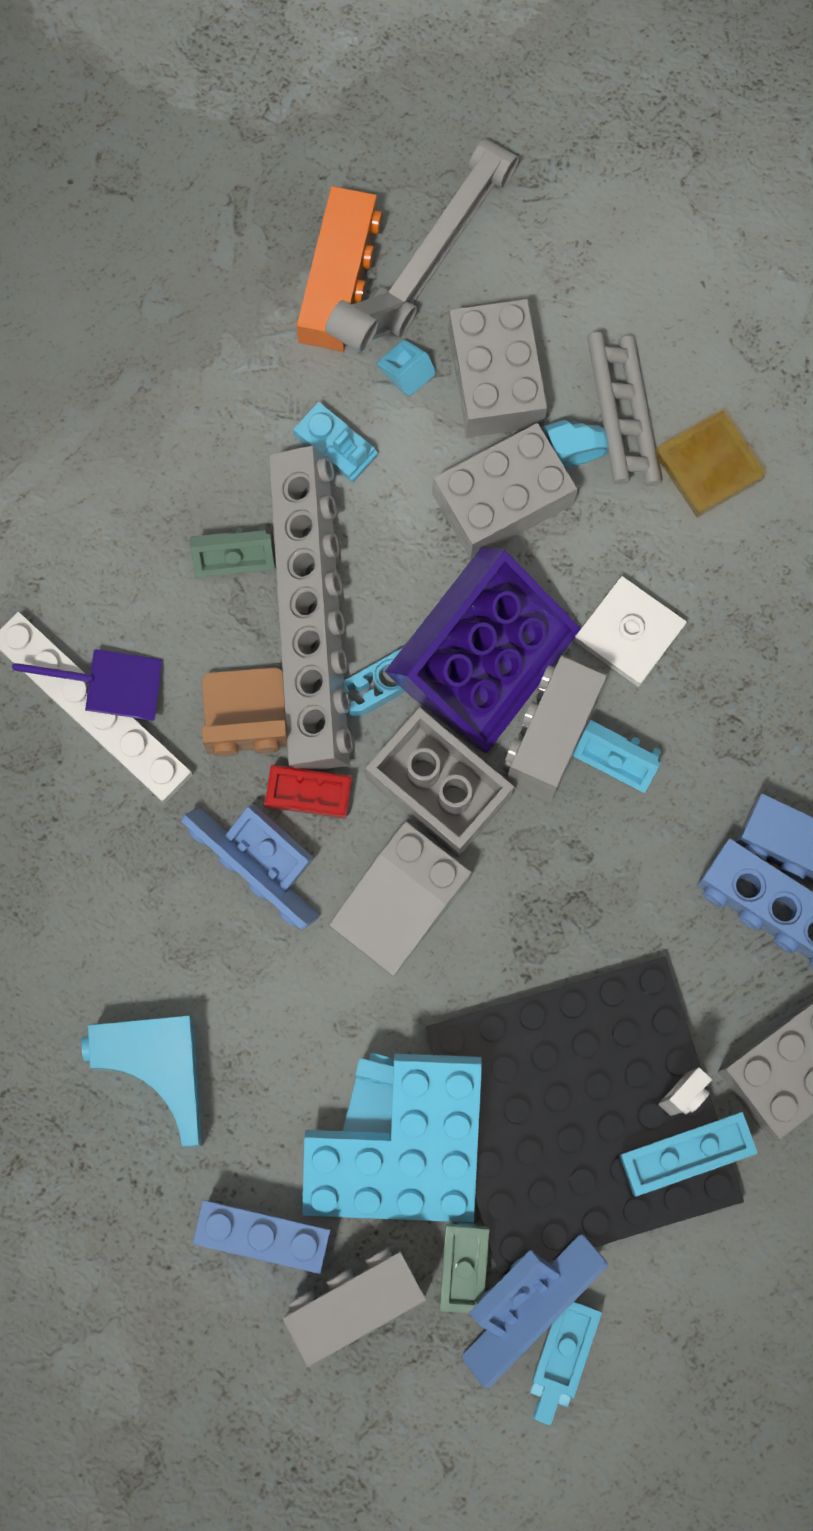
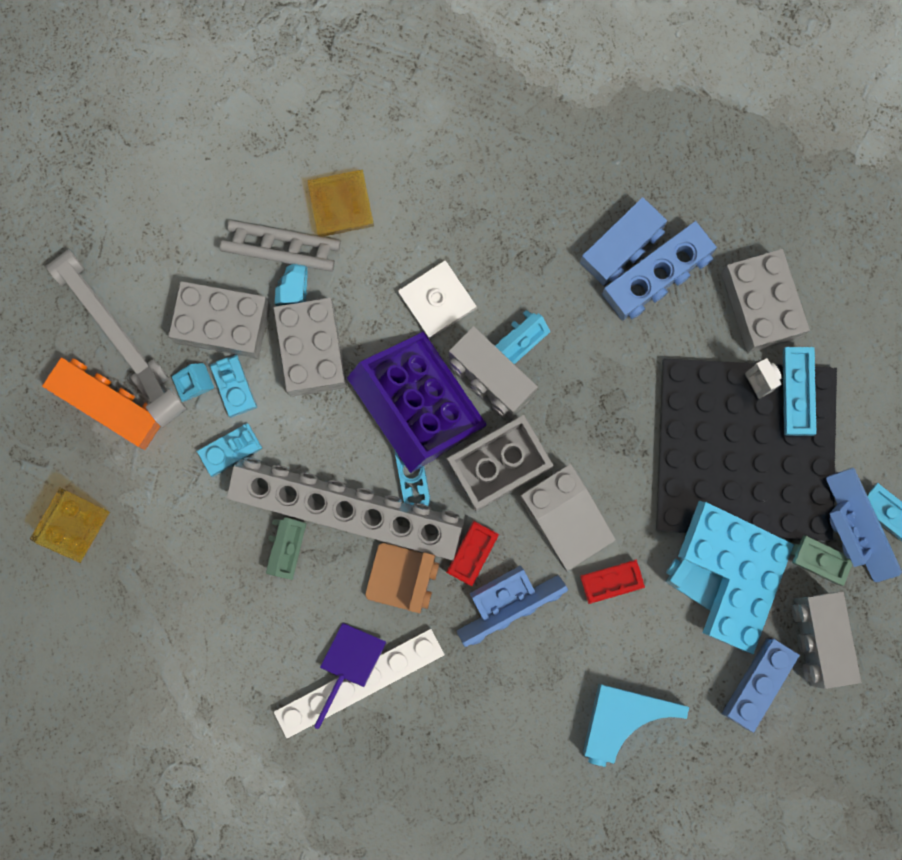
camera: 65 degrees left, 5 degrees up
(169, 281) = (69, 525): none -> clear yellow plate
(335, 988) = (612, 581): none -> red plate
(419, 417) = (233, 386): none -> medium azure plate

